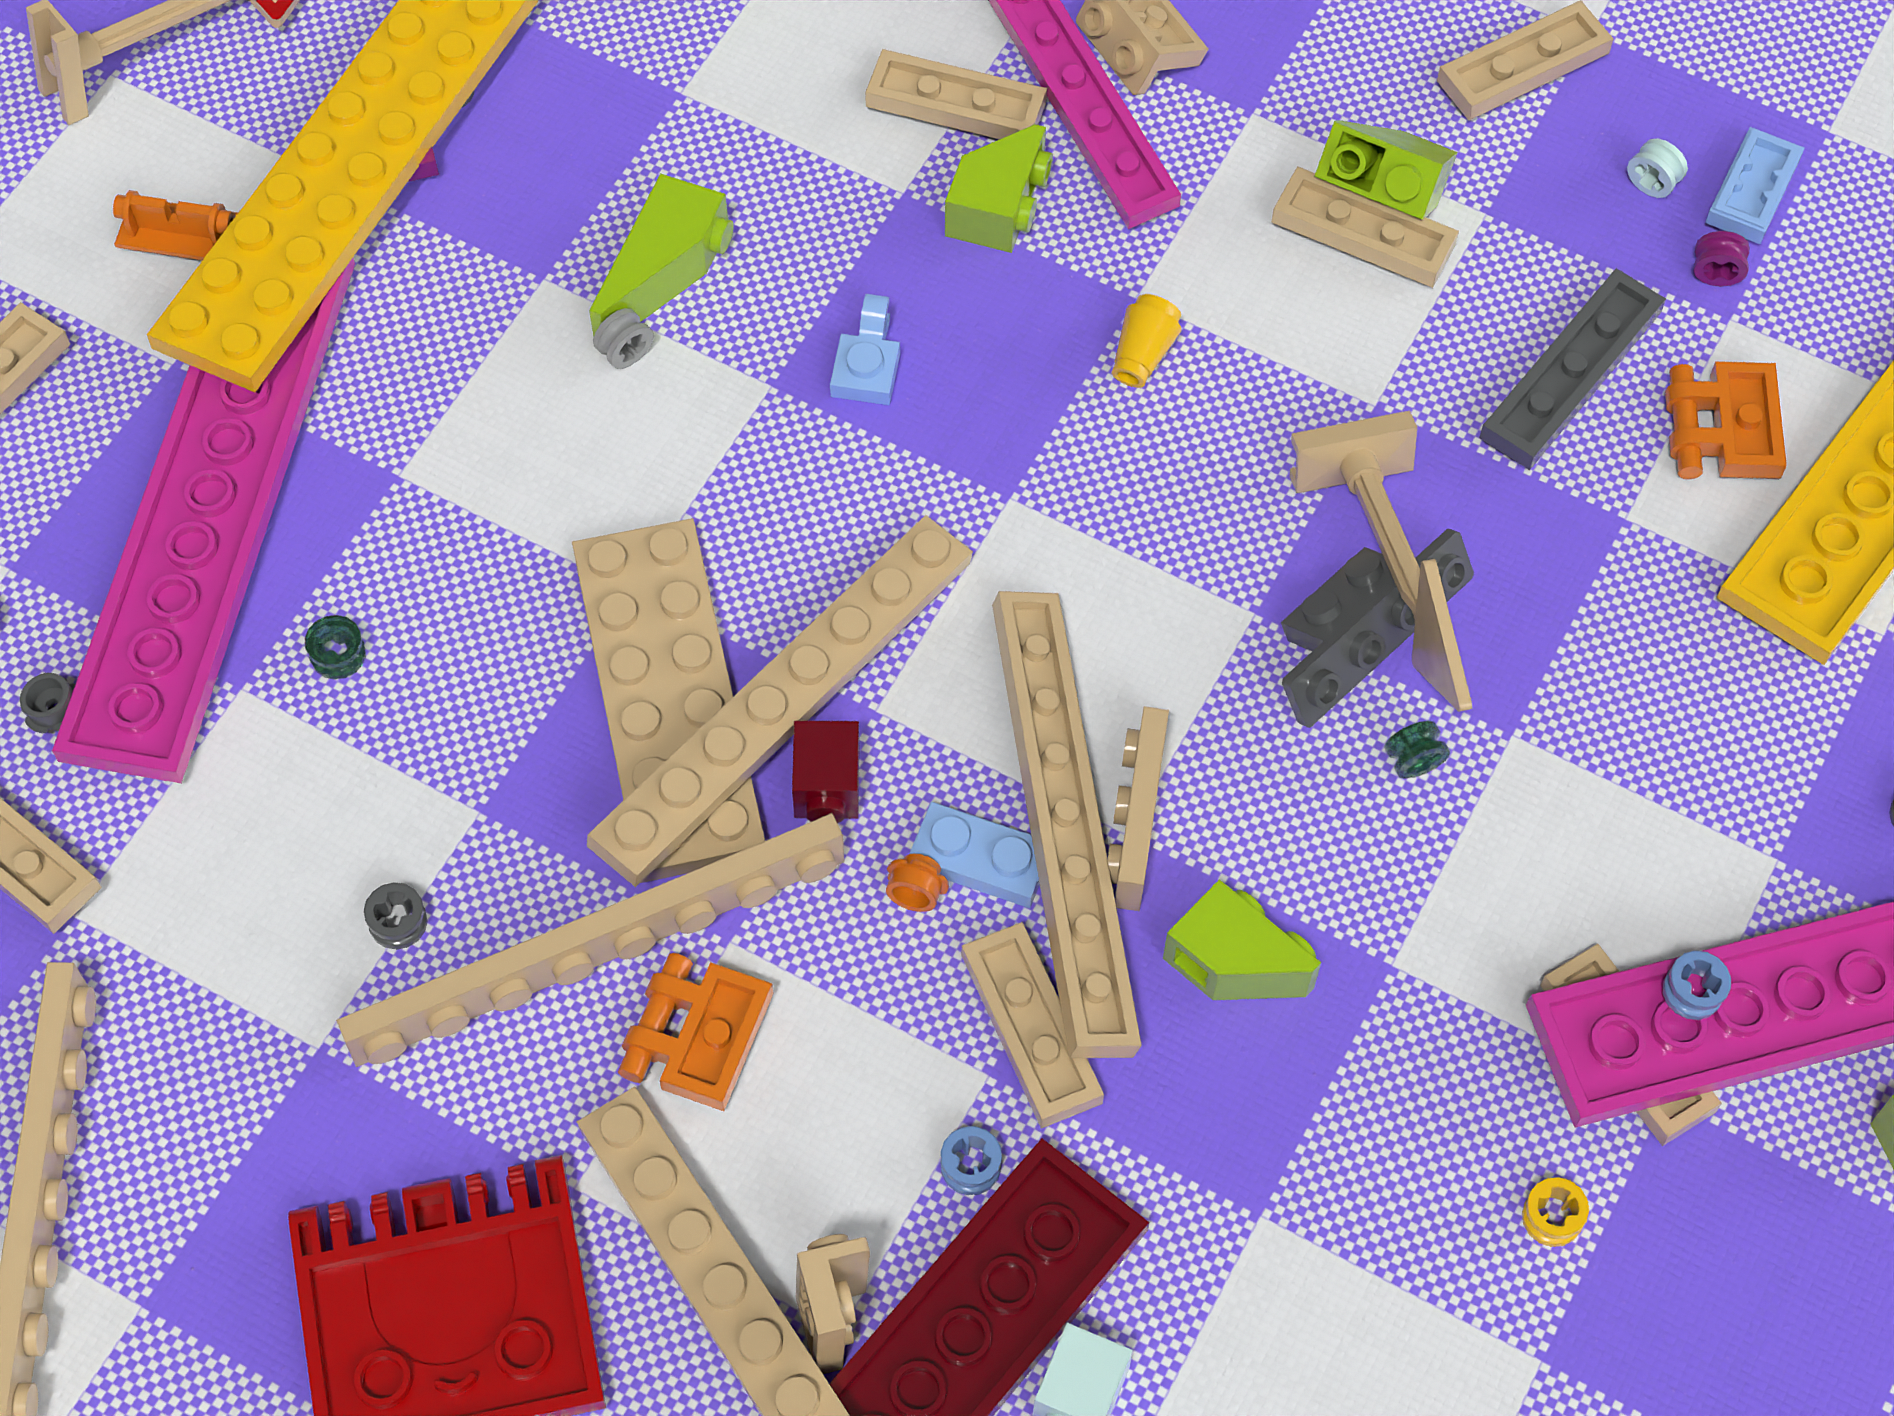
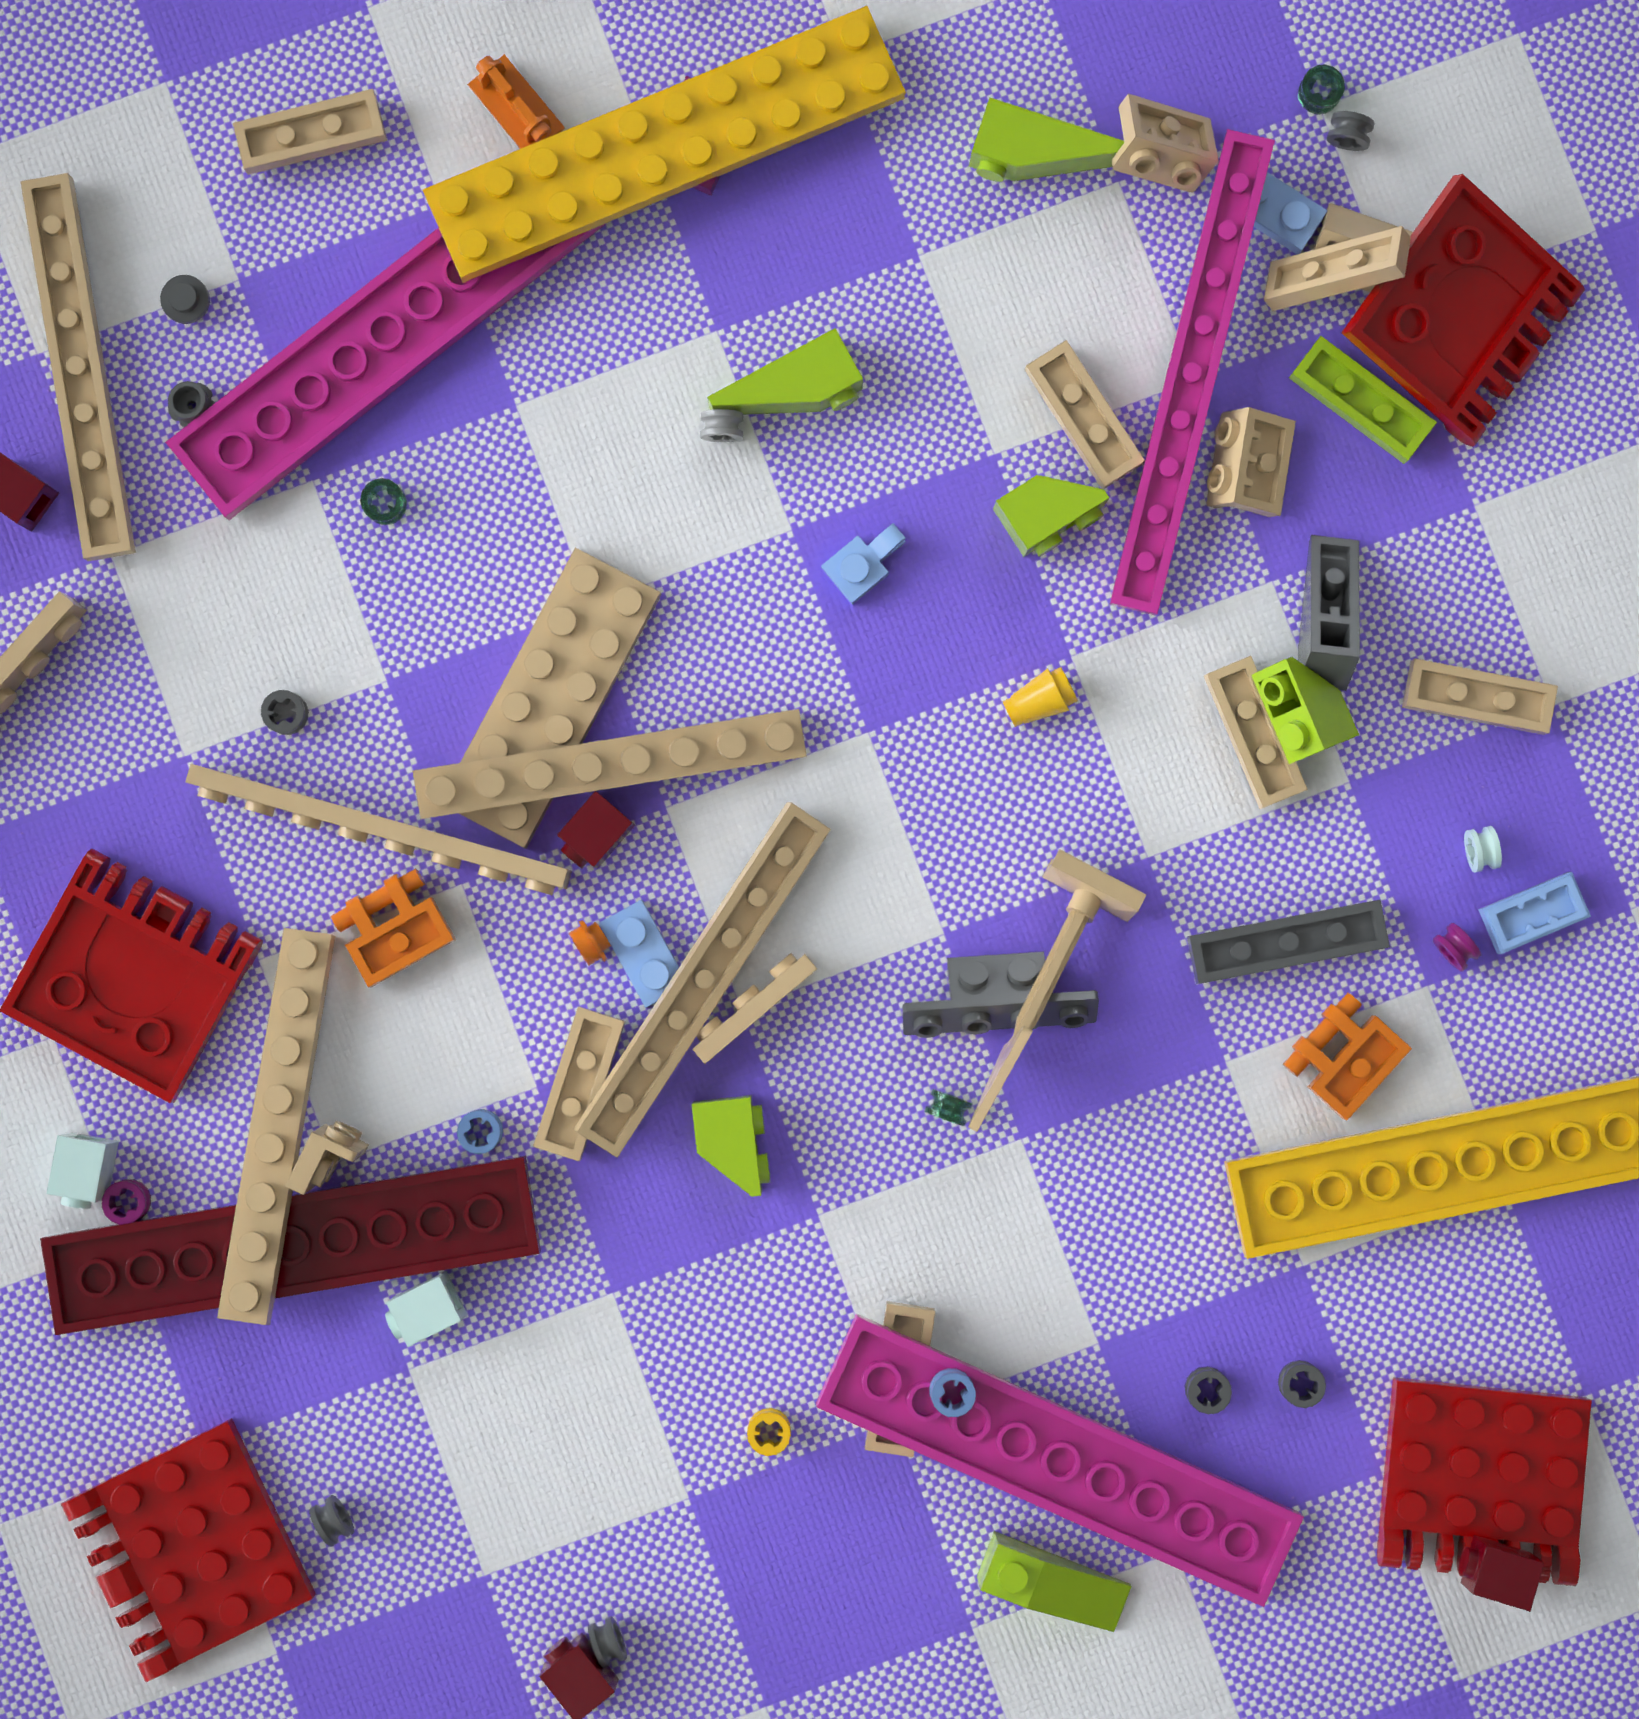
camera: 40 degrees right, 25 degrees up
(1330, 82) = (1331, 610): none -> dark grey slope

